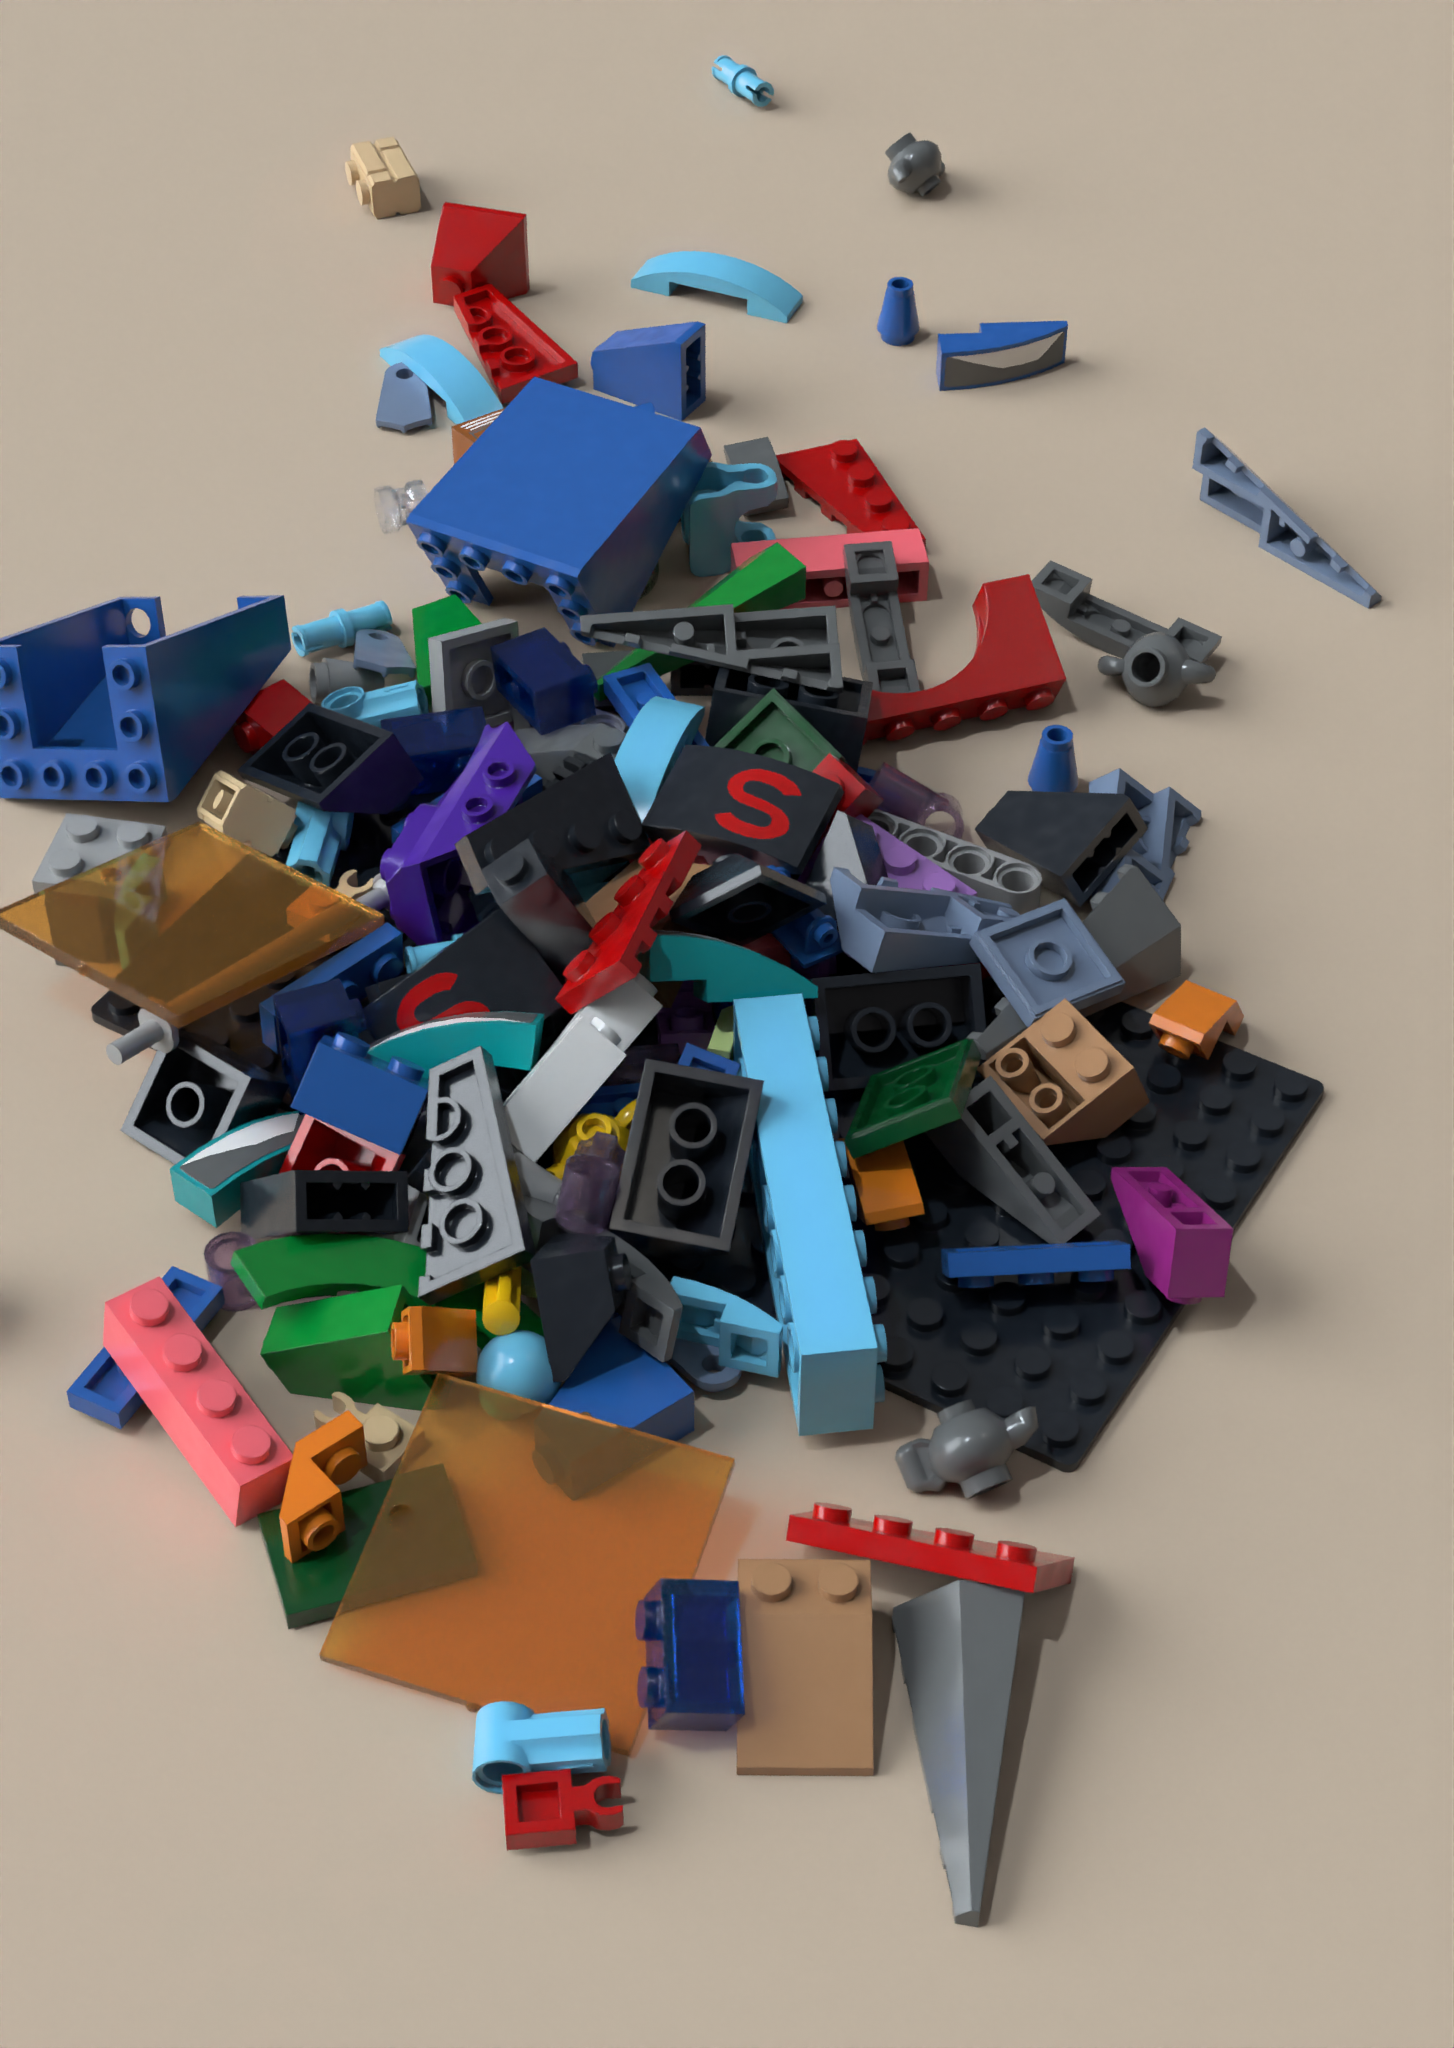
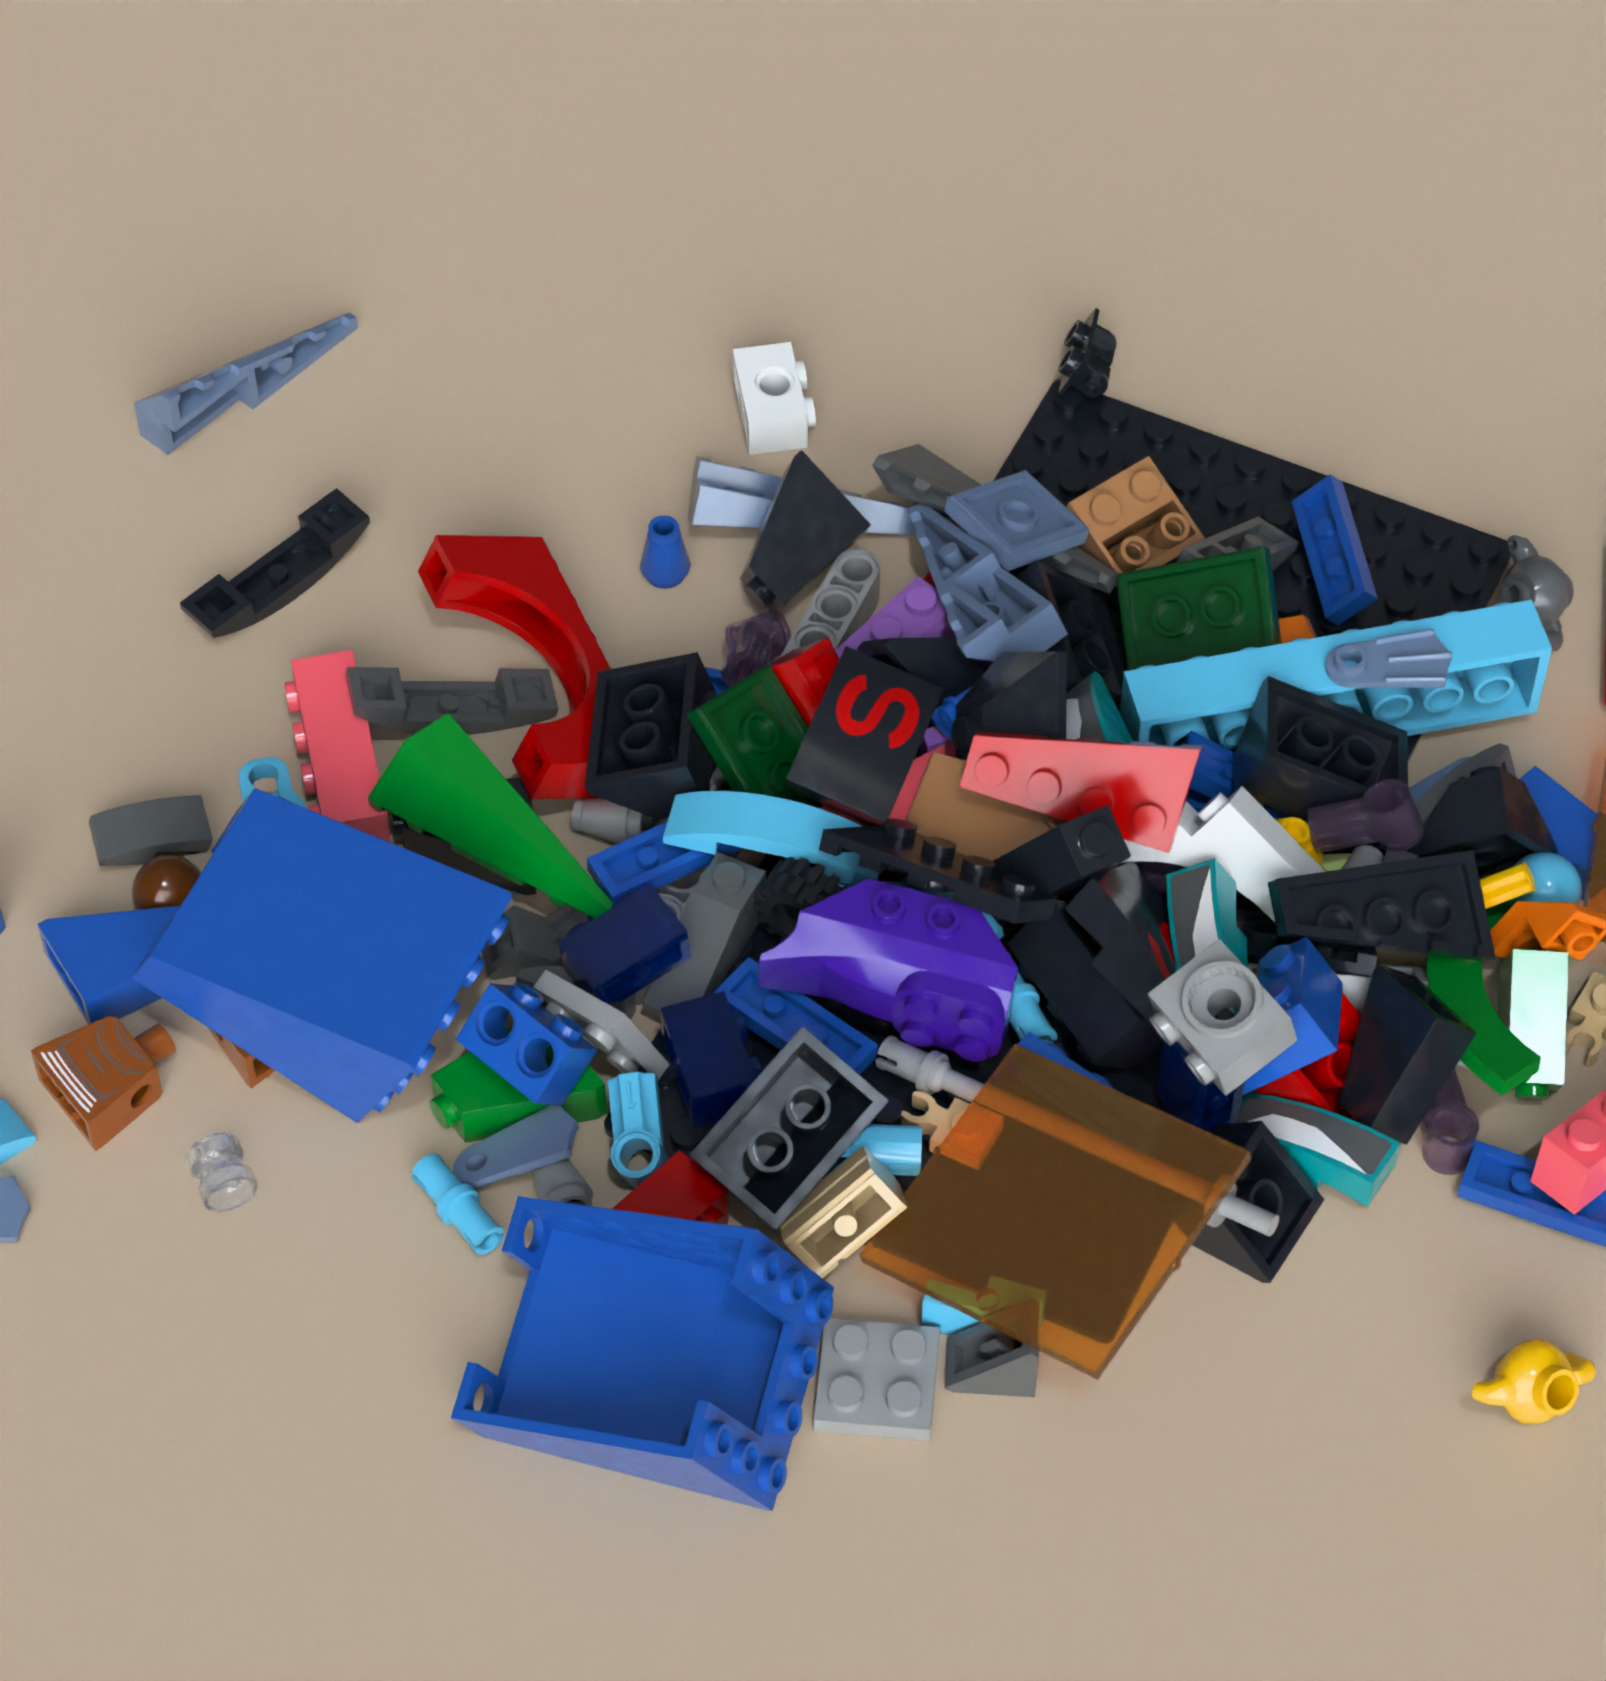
camera: 95 degrees left, 10 degrees up
(317, 985) = (1220, 1049): none -> light grey brick
(456, 606) = (522, 1053): none -> blue brick
(743, 1332) = (1456, 741): medium azure slope -> none
(776, 644) = (584, 747): dark grey wedge -> none
(789, 1205) = (1391, 662): none -> sand blue piece
(846, 487) = (180, 743): red wing -> none
(1007, 521) = (283, 573): none -> black slope
(1068, 601) = (426, 504): dark grey slope -> none
(1156, 669) = (506, 476): dark grey piece -> none
(1174, 1233) = (1283, 459): magenta slope -> none
(1194, 1020) = (1021, 444): orange slope -> none
(1271, 852) = (771, 398): none -> white brick
(1323, 1082) = (1088, 357): none -> black hinge

